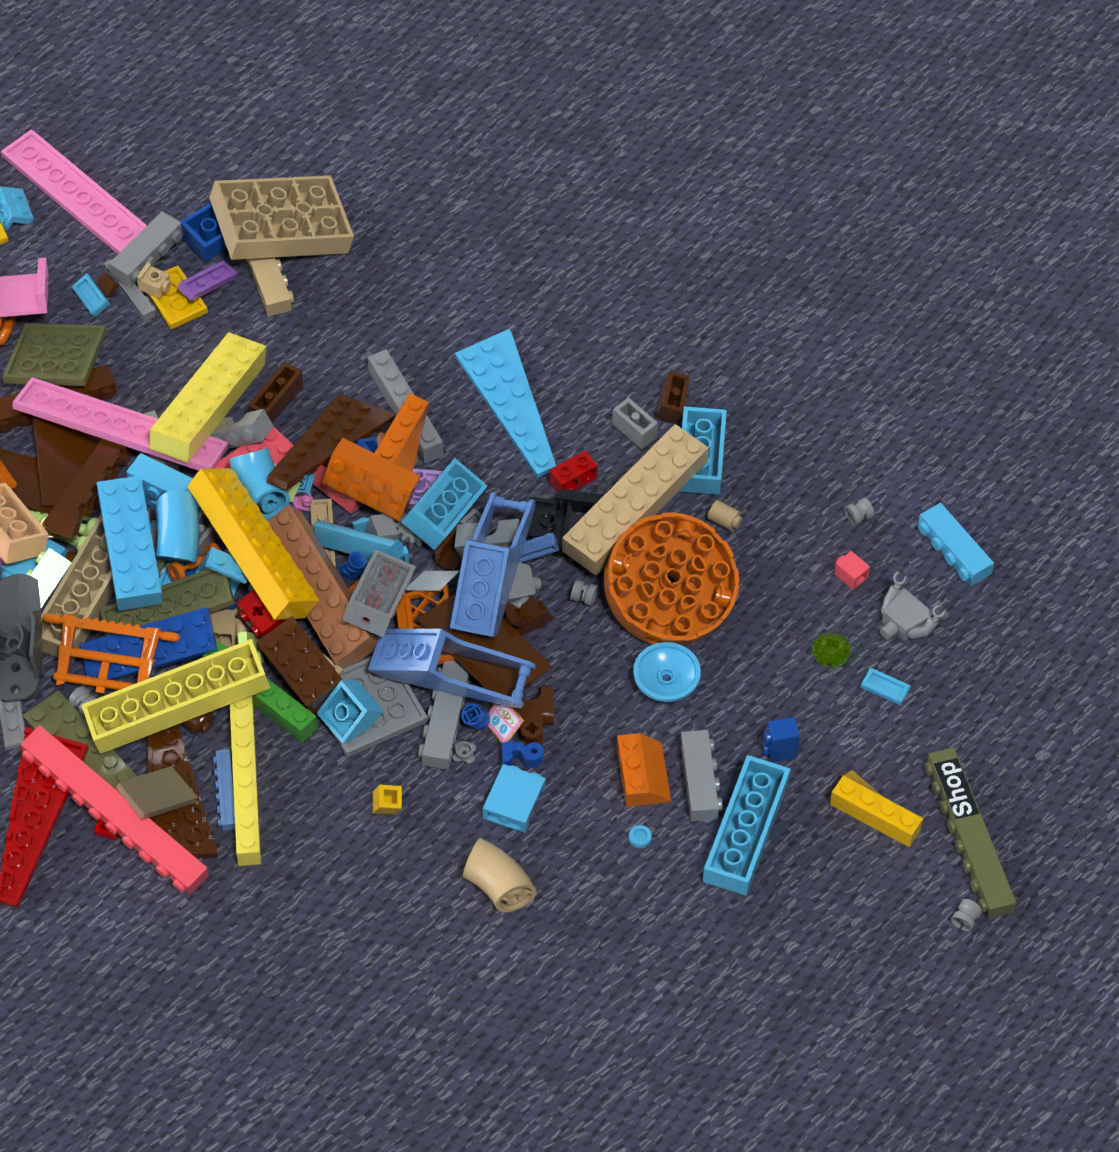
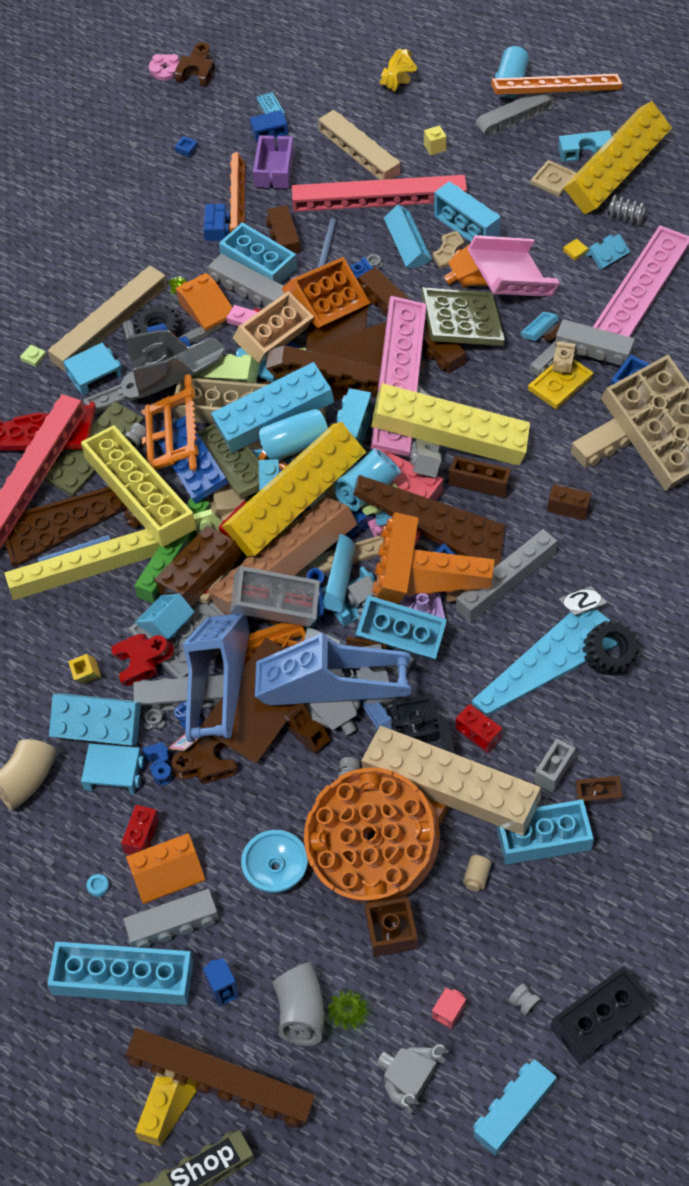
camera: 80 degrees right, 0 degrees up
(156, 792) = (47, 500): dark tan tile -> none
(207, 280) = (582, 395): medium lavender plate -> none
(336, 331) = (569, 502): none -> reddish brown brick
(391, 741) = (143, 656): none -> red piece
(455, 797) = (94, 719): none -> medium azure brick
(456, 353) = (582, 600): none -> sticker
(524, 342) = (625, 641): none -> black tyre
(596, 783) = (140, 830): none -> red brick
(762, 593) = (391, 926): none -> reddish brown brick
(819, 681) = (300, 1005): none -> light grey brick
(879, 755) = (219, 1078): none -> reddish brown brick
(885, 686) = (322, 1073): medium azure tile -> none
(891, 456) = (602, 1030): none -> black brick

